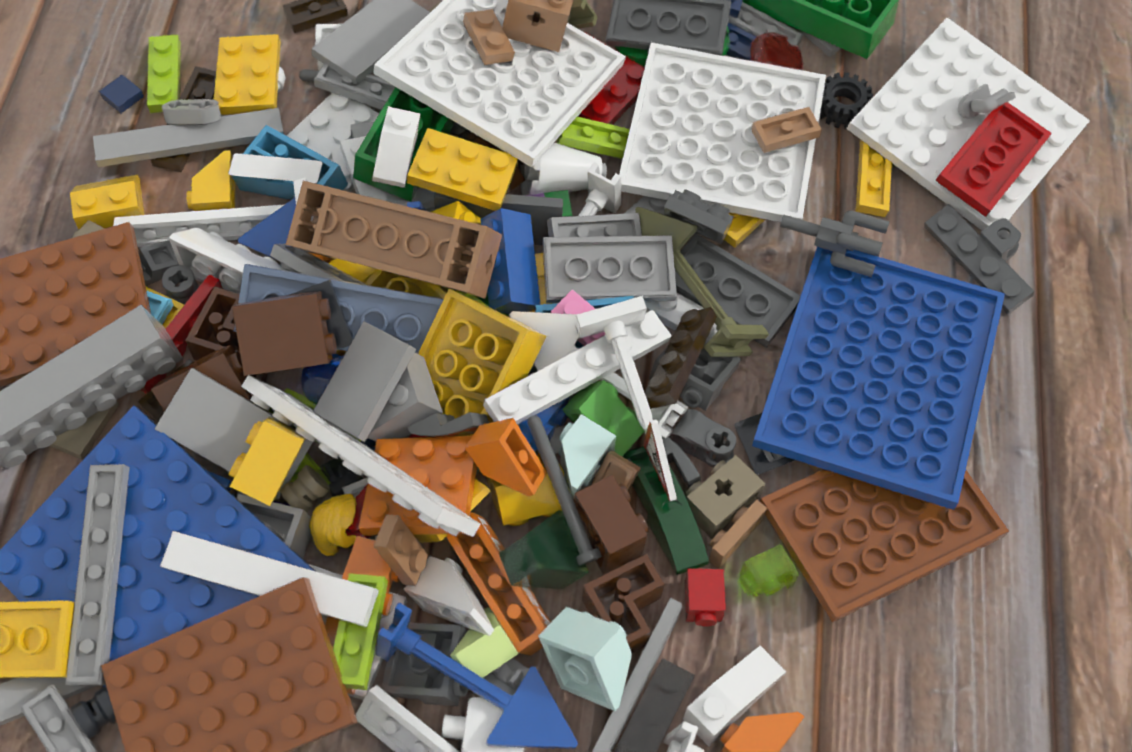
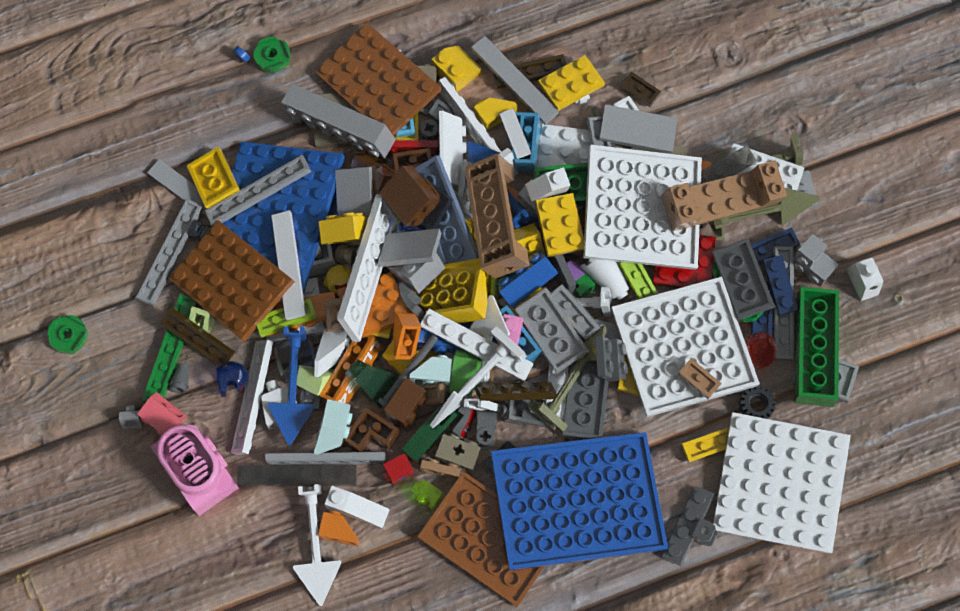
camera: 65 degrees right, 10 degrees up
(121, 94) = (526, 29): dark blue tile -> none
(163, 71) = (553, 40): lime plate -> none
(191, 111) = (527, 71): light grey beam -> none
(488, 37) = (652, 190): medium nougat plate -> none
(840, 237) = (645, 442): dark grey plant -> none
(982, 101) = (790, 479): light grey piece -> none
(993, 157) = (757, 503): red plate -> none

